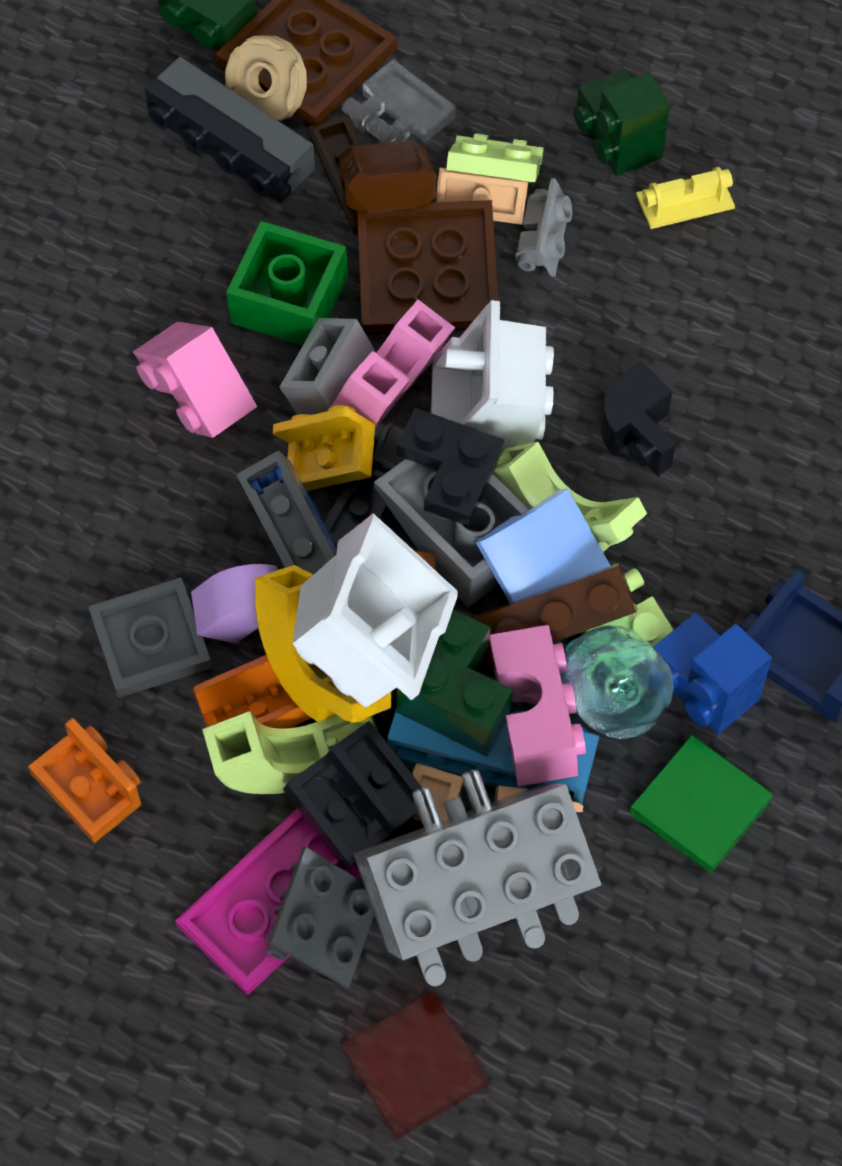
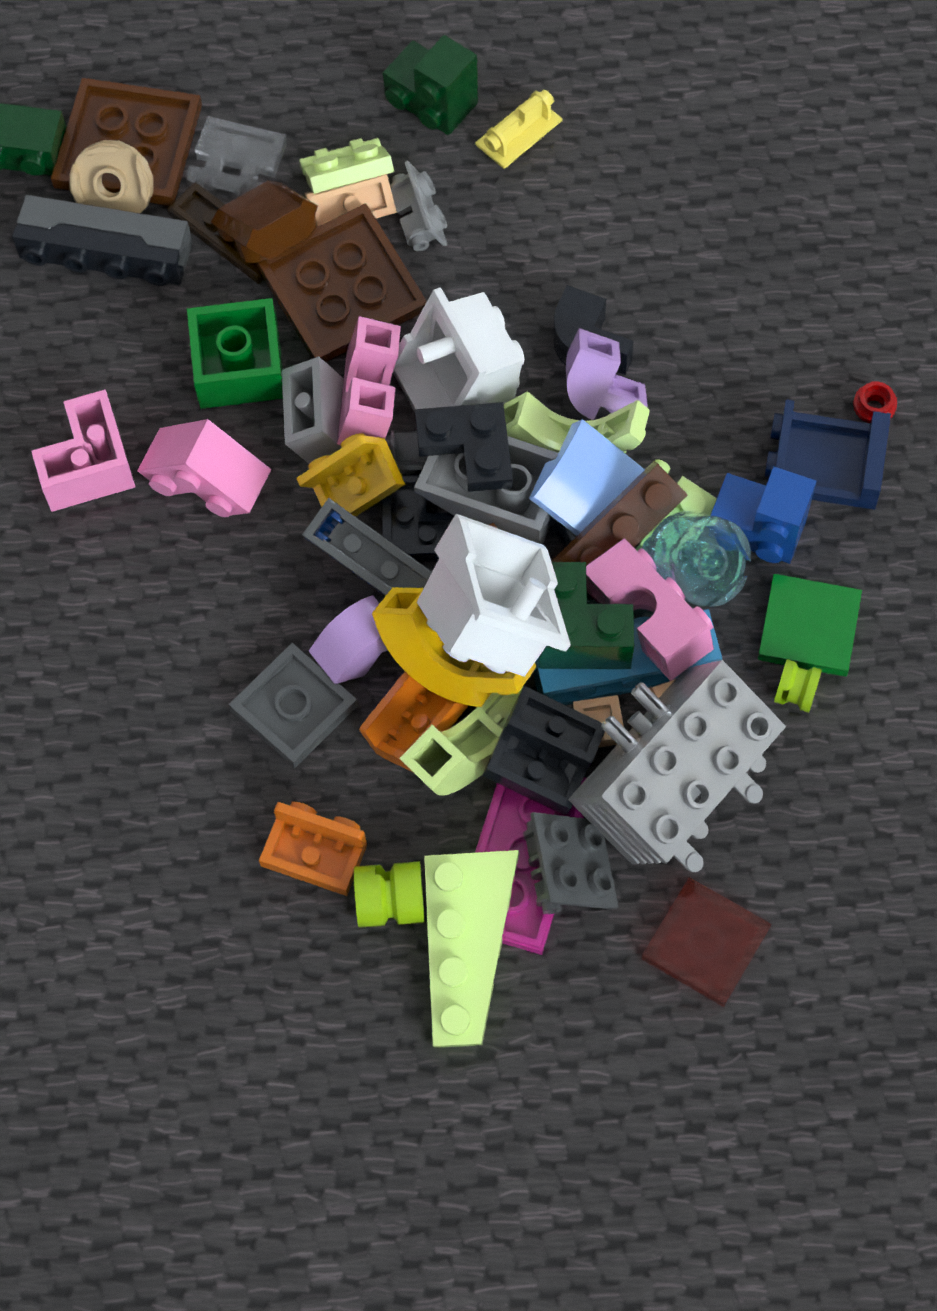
camera: 25 degrees left, 5 degrees up
(96, 323) = (88, 464): none -> bright pink brick
(125, 858) = (388, 894): none -> lime wheel
(182, 929) = (465, 925): none -> yellowish green wing
(611, 464) = (593, 377): none -> lavender brick
(651, 857) = (797, 685): none -> lime wheel

